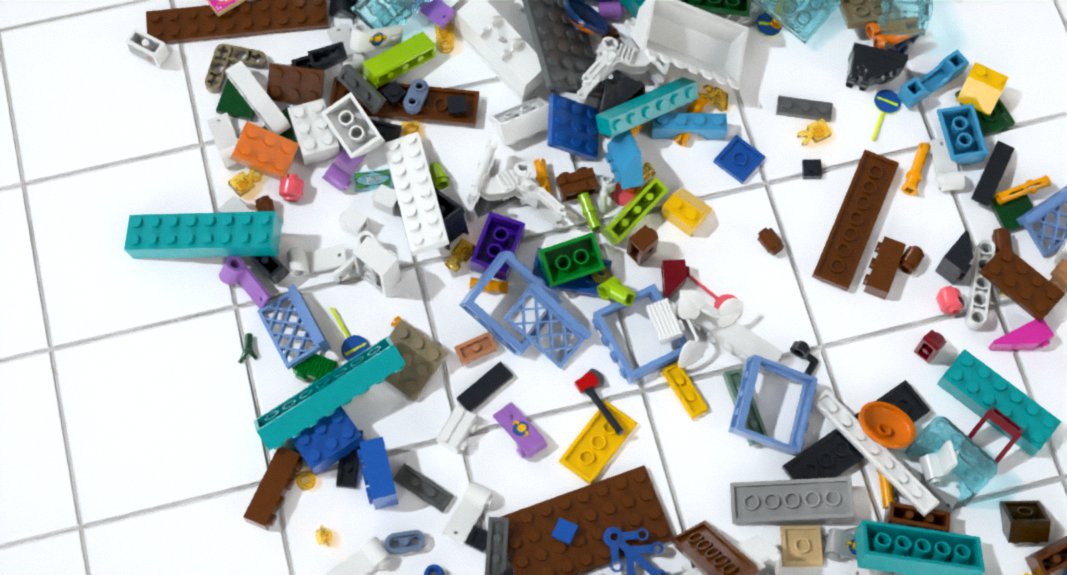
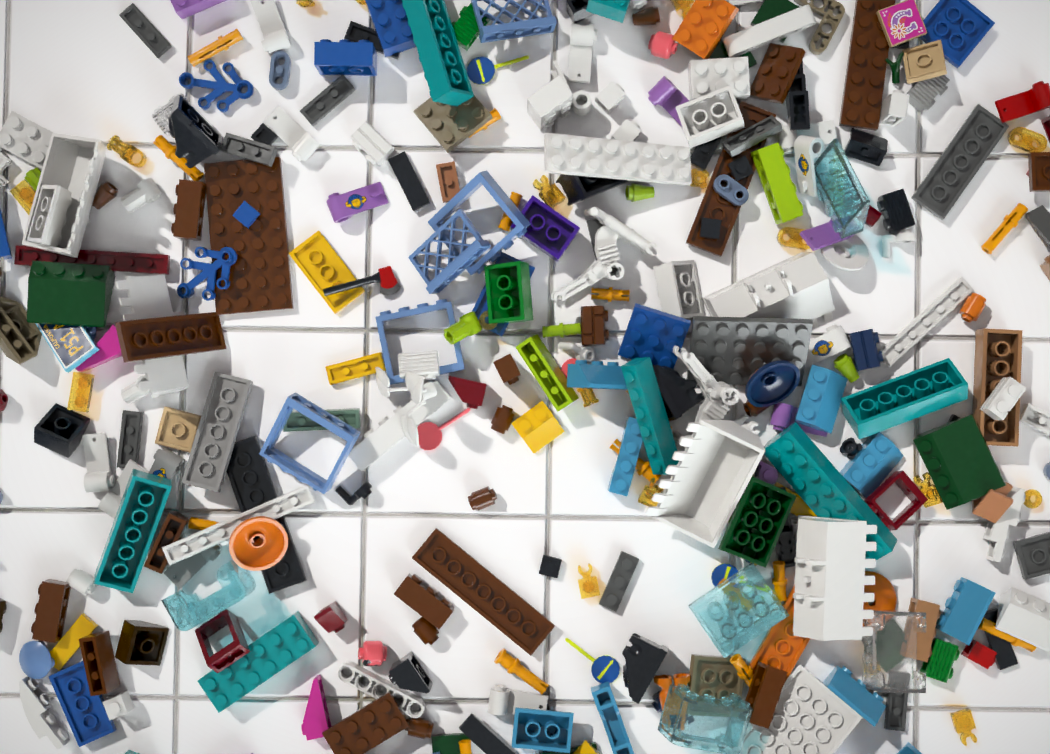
camera: 110 degrees right, 20 degrees up
(372, 180) = (653, 125): clear light blue tile -> none
(690, 241) = (502, 419): none -> reddish brown brick
(739, 159) = (580, 497): blue tile -> none
(939, 464) = (209, 581): white door -> none

